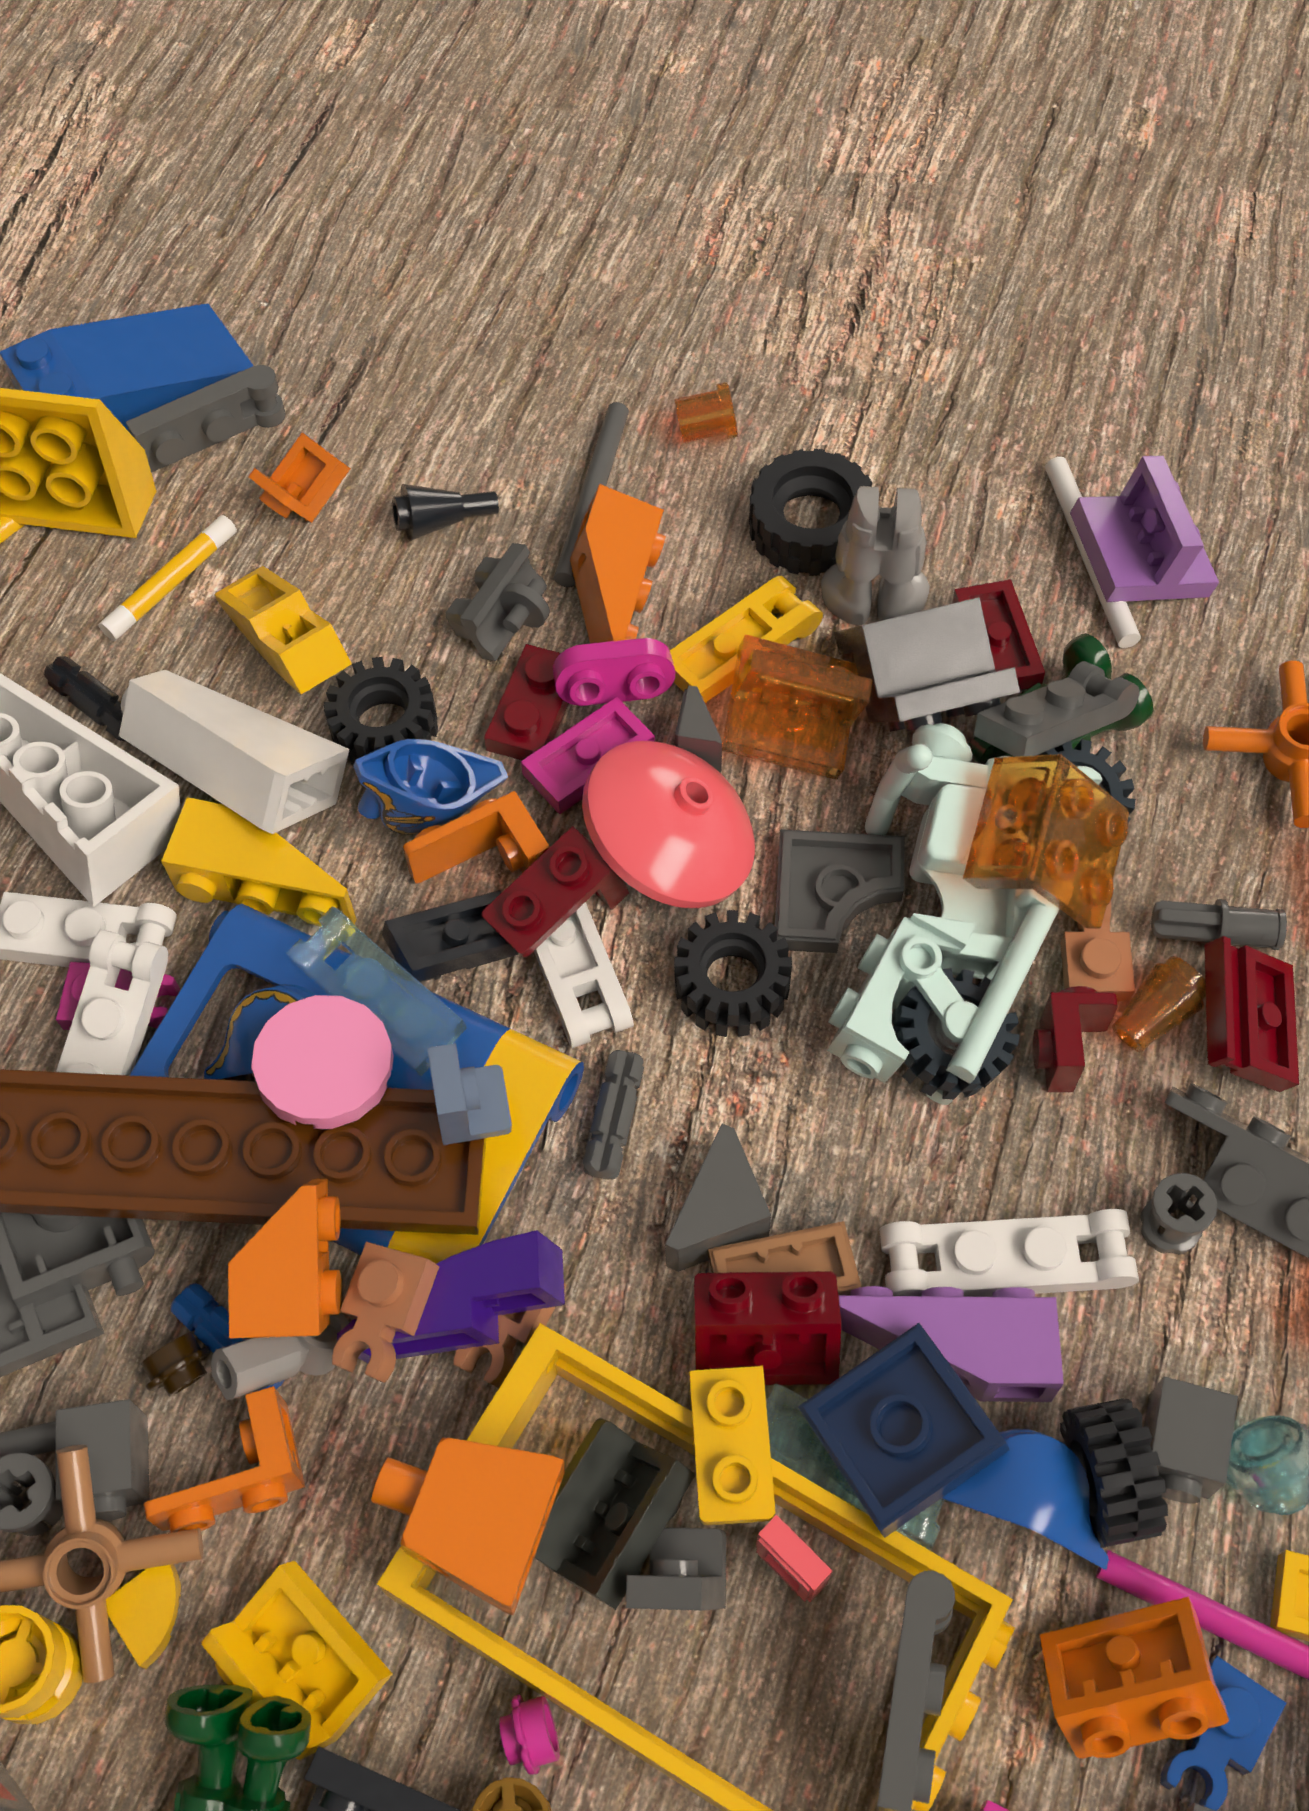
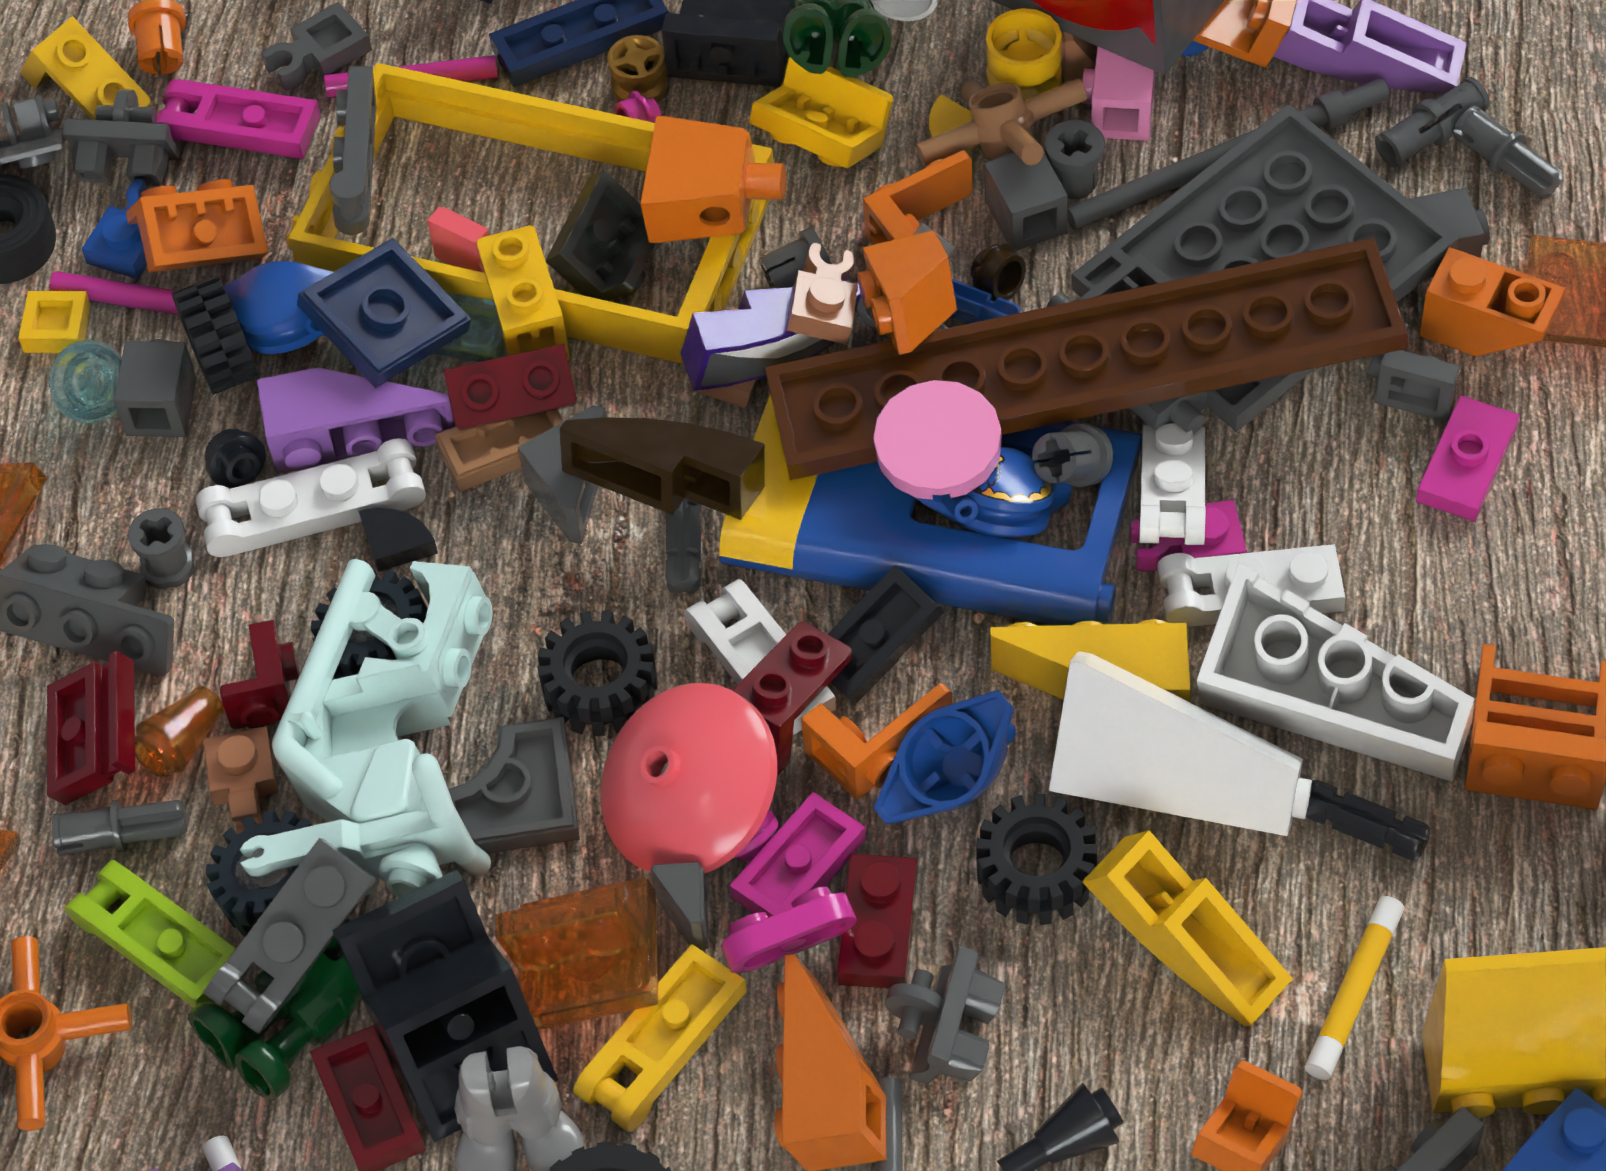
camera: 170 degrees right, 5 degrees down
(189, 1053) = (1078, 469): none -> dark grey bush
(371, 977) = (922, 538): clear light blue plate -> none
(398, 1428) = (782, 264): none -> dark grey bush
(468, 1099) = (801, 424): sand blue bracket -> none
(613, 1120) = (665, 462): none -> dark brown slope
(684, 1572) = (544, 198): dark grey bracket -> none
(919, 1186) = (396, 537): none -> black tile
(1048, 833) = (302, 752): clear orange bracket -> none
(1092, 1318) = (234, 458): none -> black plate
(1190, 815) = (151, 932): none -> lime plate

